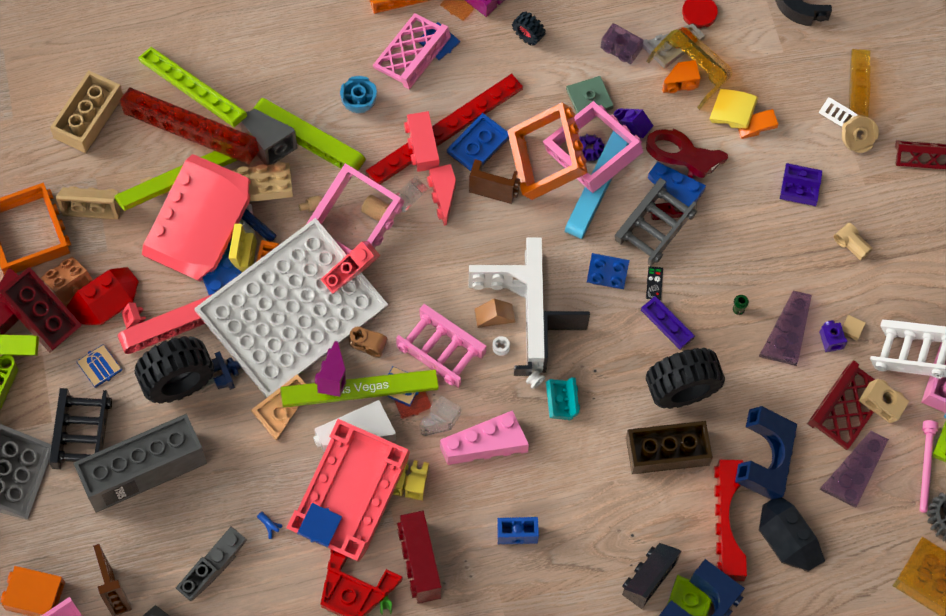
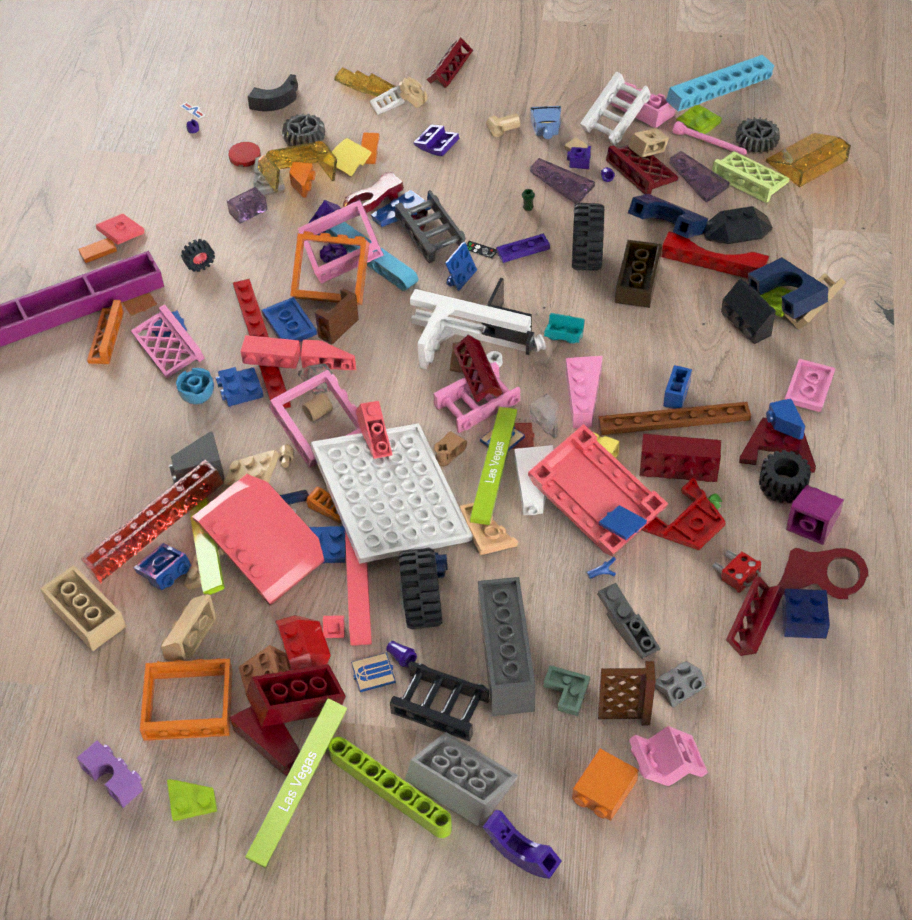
camera: 65 degrees left, 15 degrees down
(120, 382) = (401, 653): none -> dark purple cone
(129, 537) = (572, 686): none -> sand green plate
(151, 154) = (163, 566): none -> blue plate
(193, 87) = (110, 508): lime tile -> none
(242, 248) = (311, 511): light yellow slope -> none
(313, 138) = (225, 433): lime beam -> none
(332, 376) = (475, 471): magenta slope -> none
(382, 132) = (239, 385): none -> blue plate
(466, 333) = (480, 364): none -> dark red fence
(482, 540) = (674, 418): none -> dark orange plate
(587, 91) = (282, 240): sand green plate -> none
(759, 47) = (303, 130): none -> dark grey gear
(819, 373) = (609, 174): none -> dark purple hinge
(867, 520) = (749, 183): none -> yellowish green fence
(877, 284) = (546, 120): none -> medium blue torso

